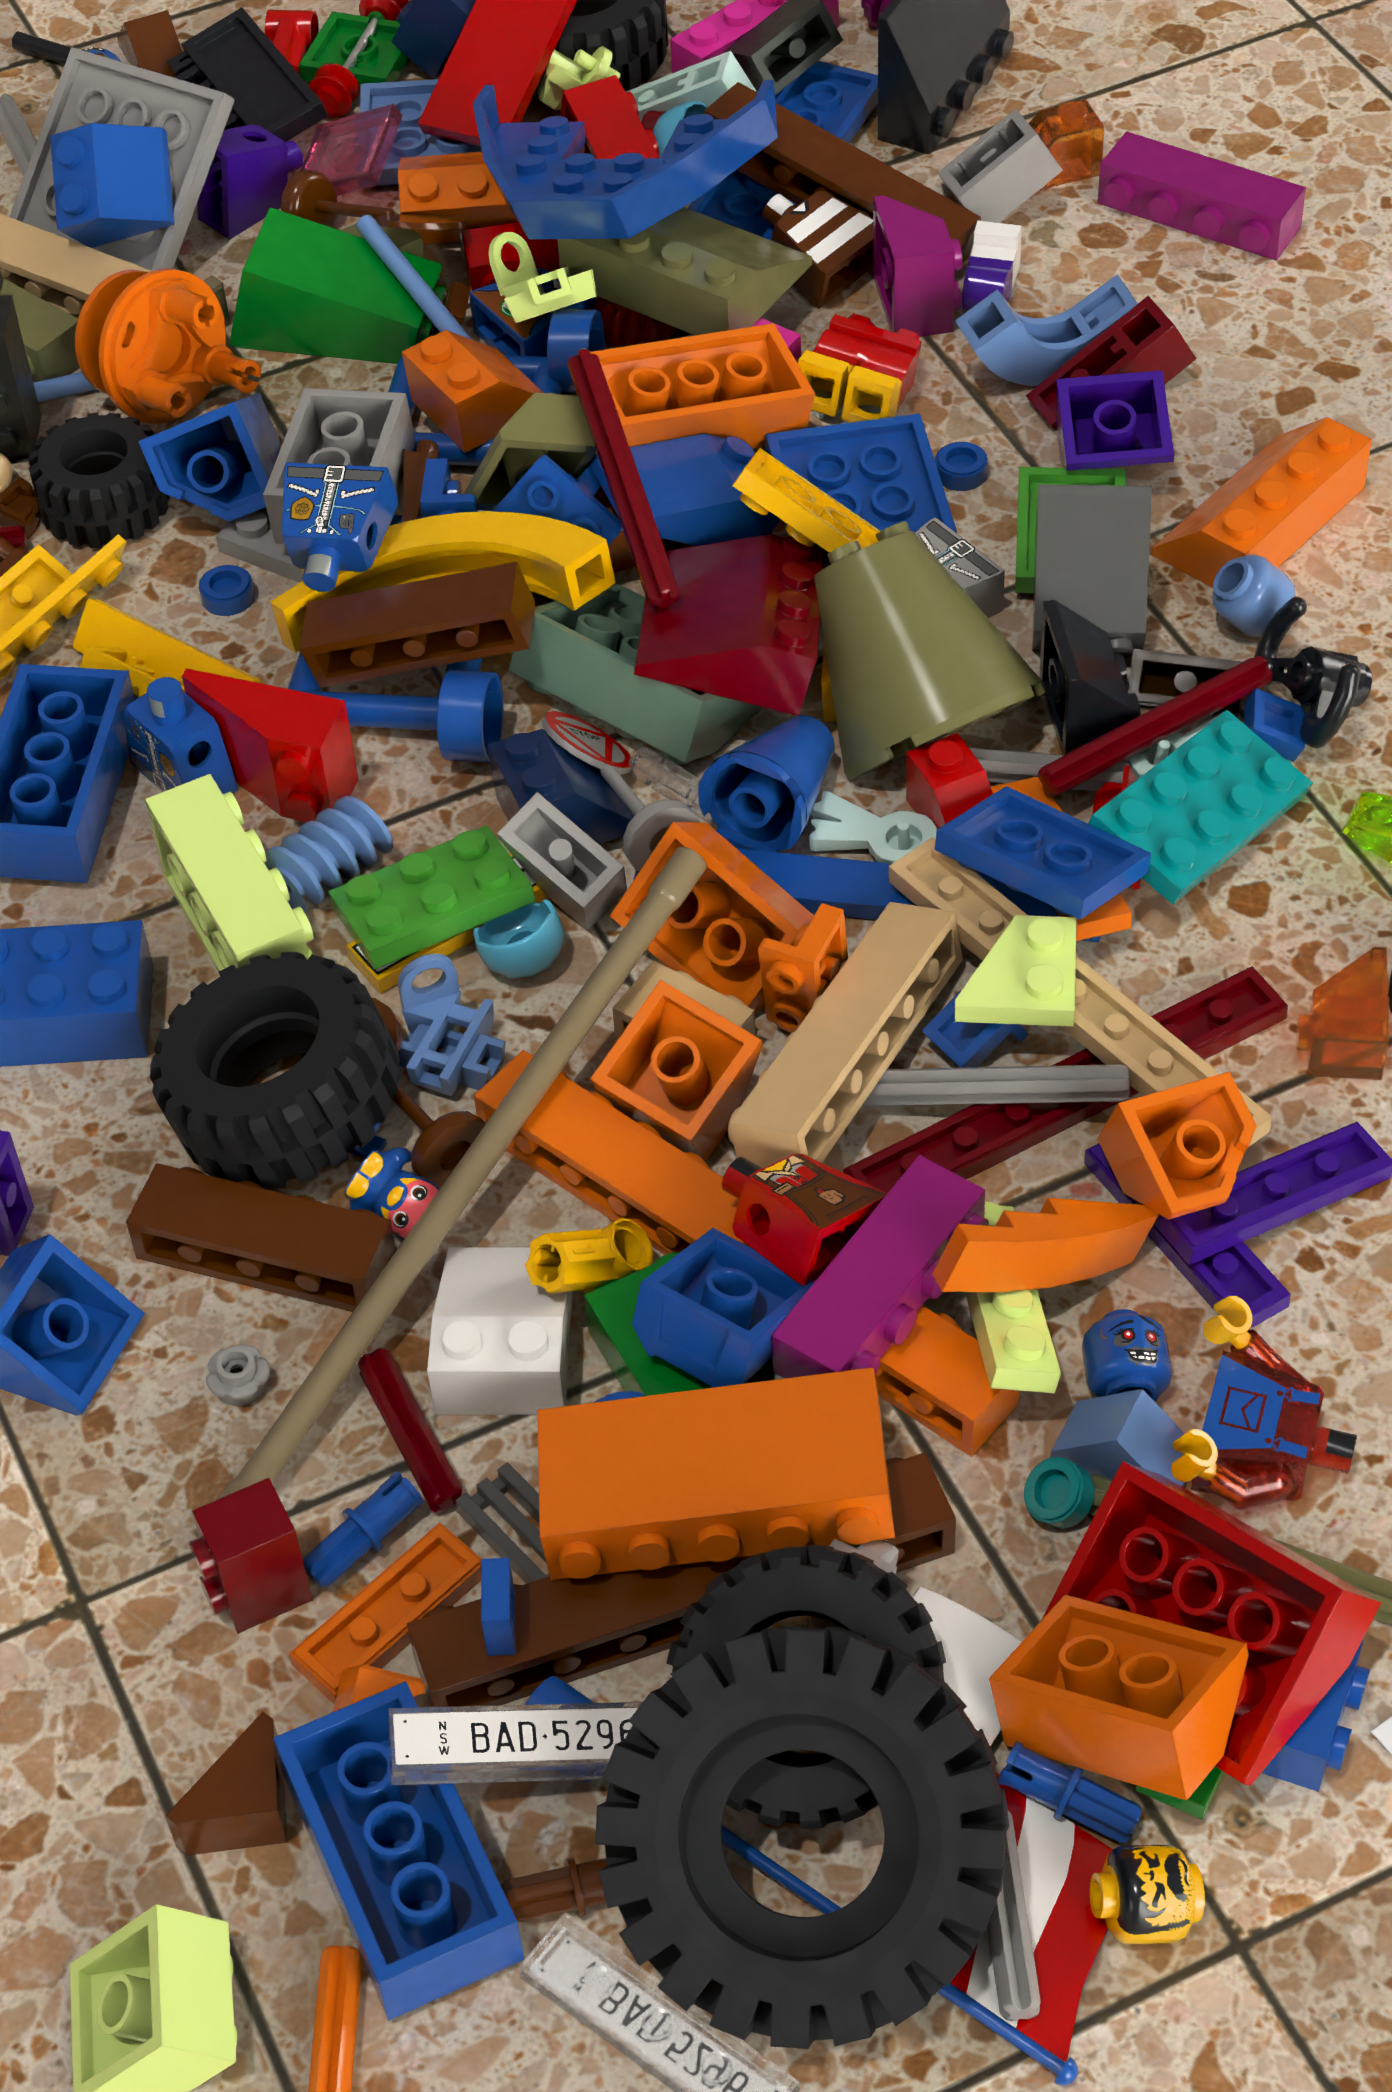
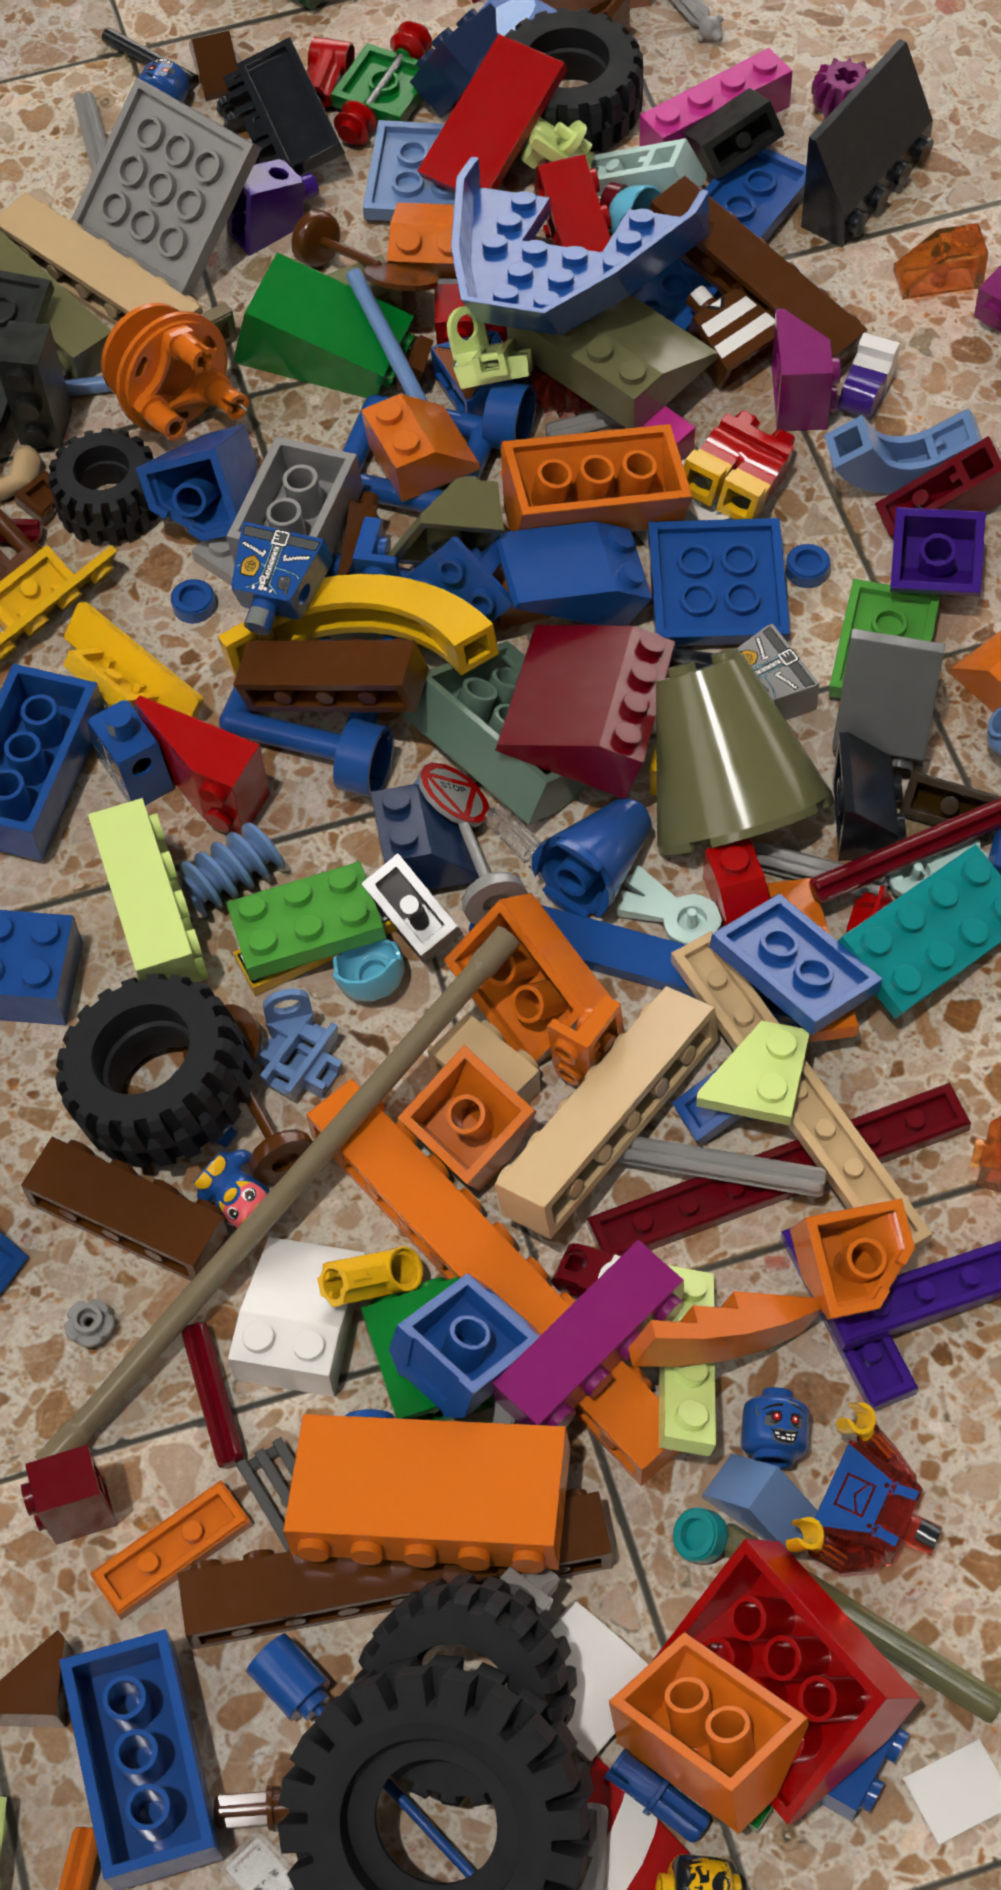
camera: 10 degrees right, 10 degrees up
(111, 182) = (153, 207): blue slope -> none
(354, 148) = (359, 189): clear pink tile -> none
(362, 1529) = (160, 1478): blue axle -> none
(364, 1681) = (143, 1618): orange slope -> none
(498, 1606) = (245, 1578): blue tile -> none
(505, 1742) = (236, 1695): tile -> none
(623, 480) = (516, 567): dark red axle -> none
(798, 1211) = (536, 1272): red torso -> none
(805, 508) = (665, 612): yellow plate -> none
(1000, 169) = (892, 284): light grey slope -> none

